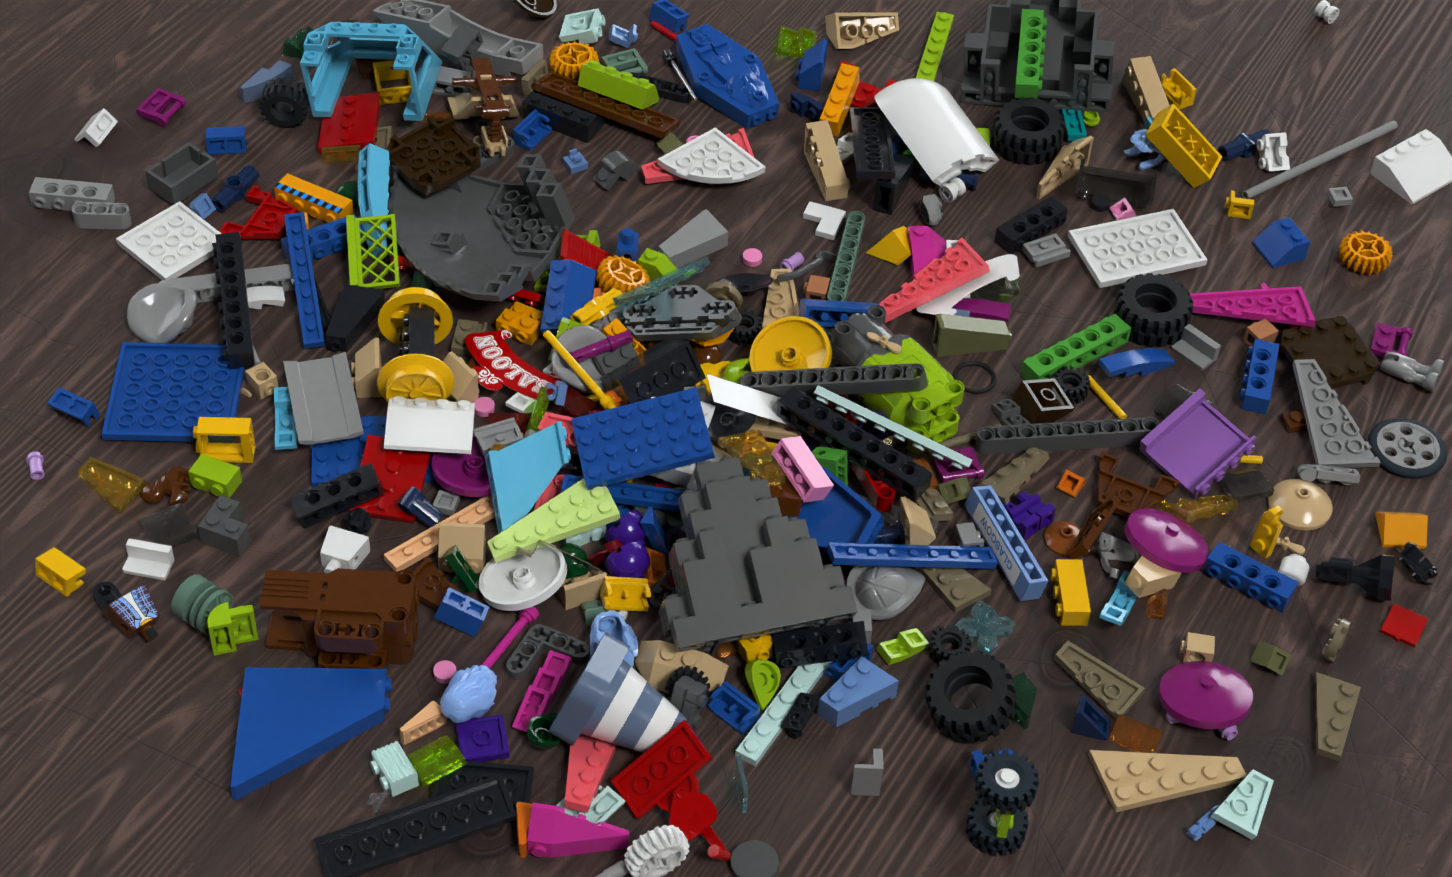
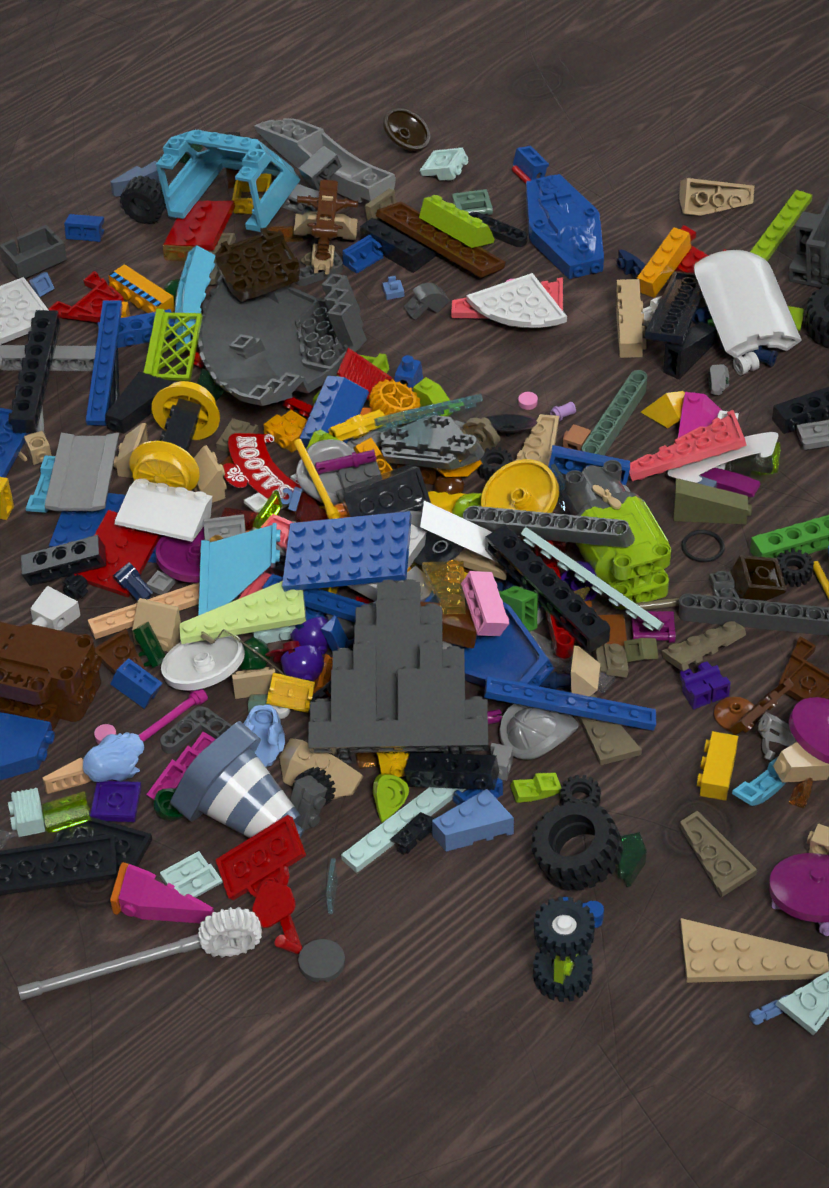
camera: 20 degrees right, 0 degrees up
(157, 103) = (36, 186): magenta plate -> none
(235, 188) = (76, 272): dark blue piece -> none
(265, 295) = (67, 371): white slope -> none
(484, 406) = (227, 500): bright pink tile -> none
(569, 57) = (420, 188): light orange gear -> none
(586, 769) = (195, 847): coral wing -> none
(622, 36) = (479, 176): medium blue bracket -> none
(669, 142) = (486, 281): olive panel -> none
(672, 61) = (518, 206): piece -> none
(695, 240) = (476, 377): light grey slope -> none
(734, 708) = (353, 815): blue hinge -> none
(795, 43) = (646, 203): clear neon green slope -> none
(812, 67) = (651, 228): blue slope -> none
(819, 257) = (575, 417): dark grey piece -> none
(827, 217) = (614, 374): white tile -> none
(868, 777) = (453, 903): light grey panel -> none
(967, 535) = (636, 695): light grey brick -> none
(986, 626) = (621, 783): clear light blue plant -> none
(1006, 542) = (669, 707): medium blue brick -> none
(1071, 483) = (760, 662): orange slope -> none
(1090, 720) = (691, 890): dark blue slope -> none
(1135, 735) = (732, 913): clear orange slope -> none

